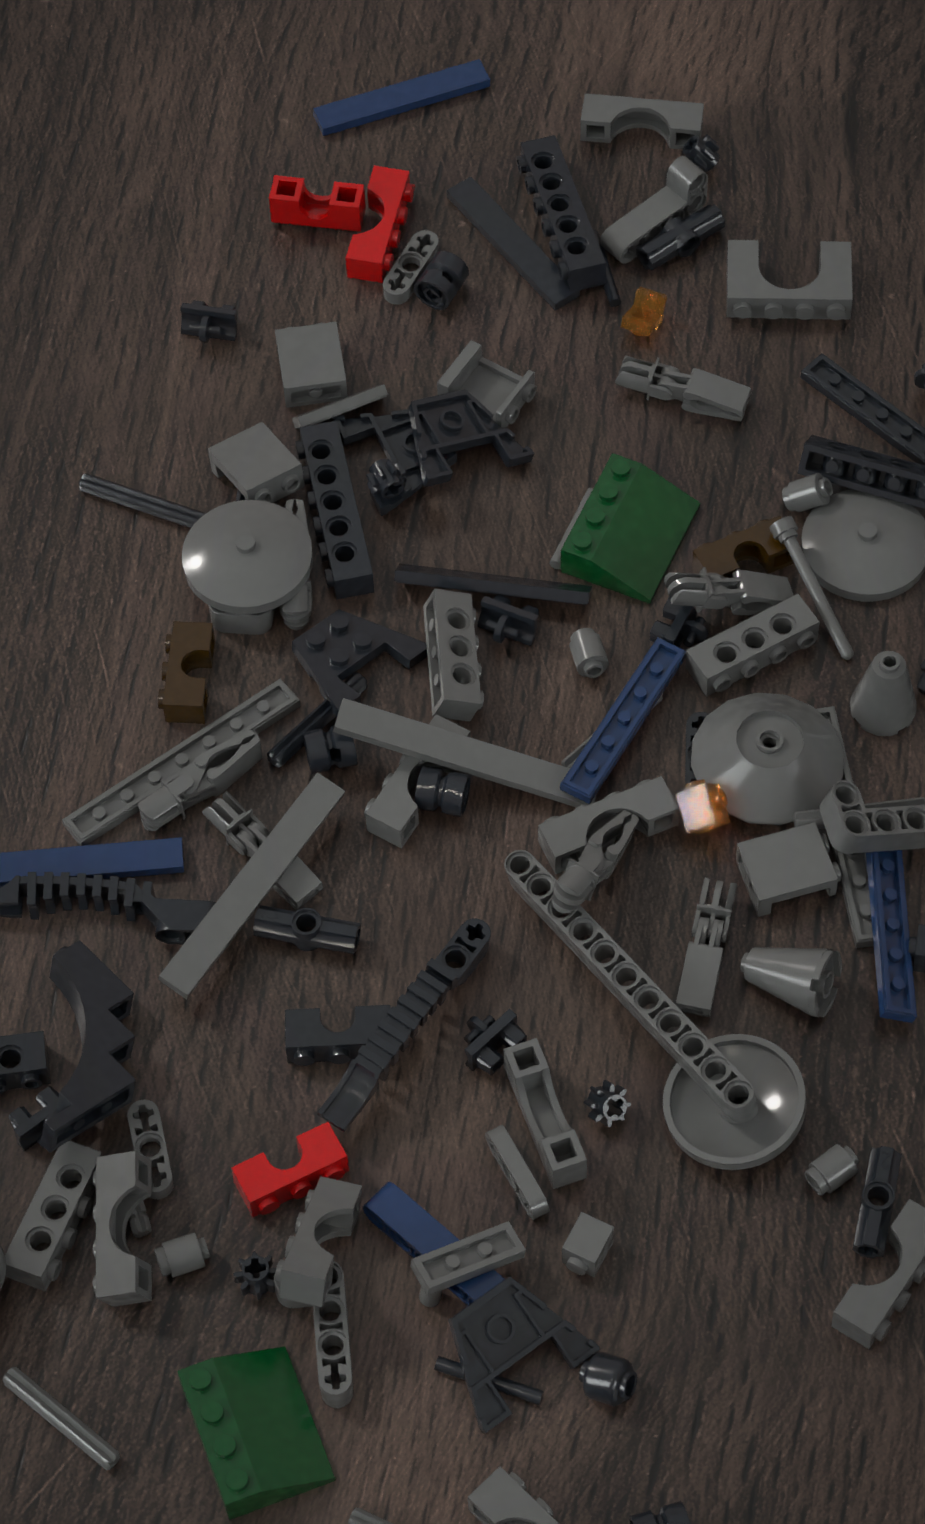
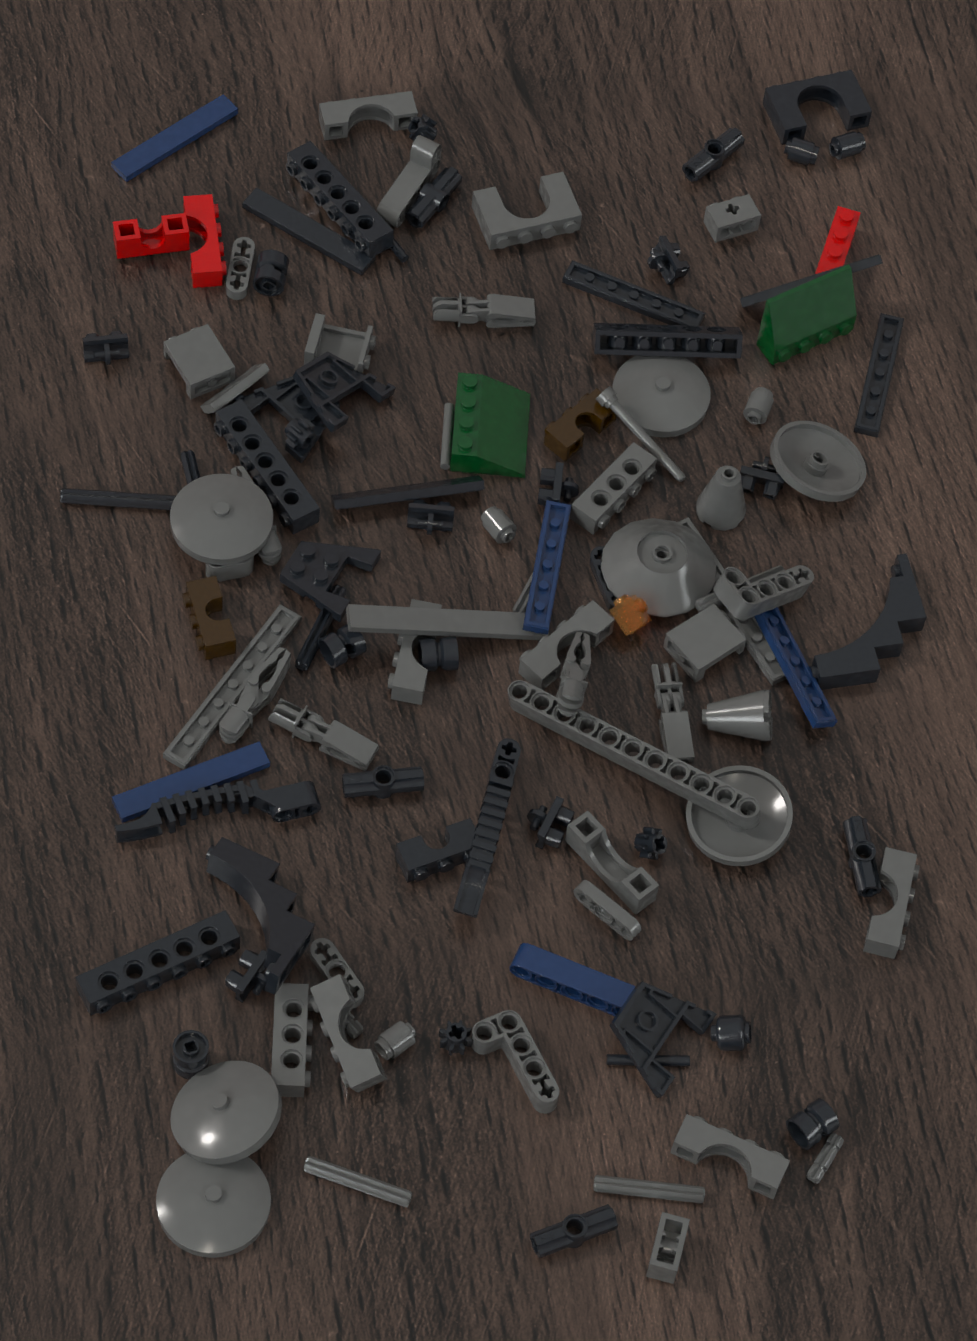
camera: 30 degrees left, 0 degrees up
(251, 886) = (332, 761): dark grey tile -> none
(255, 1429) = (499, 1145): dark green slope -> none
(257, 464) = (195, 447): dark grey panel -> none
(267, 1187) = (434, 973): red arch -> none
(308, 1268) = (500, 1018): dark grey arch -> none
(452, 655) = (402, 552): dark grey brick -> none
(465, 1260) = (602, 982): dark grey piece -> none
(587, 1245) = (678, 945): dark grey brick -> none
(645, 313) = (432, 260): clear orange bracket -> none
(744, 593) = (595, 452): dark grey arm -> none
(807, 493) = (607, 366): dark grey brick -> none
(832, 1169) = (822, 843): dark grey brick -> none

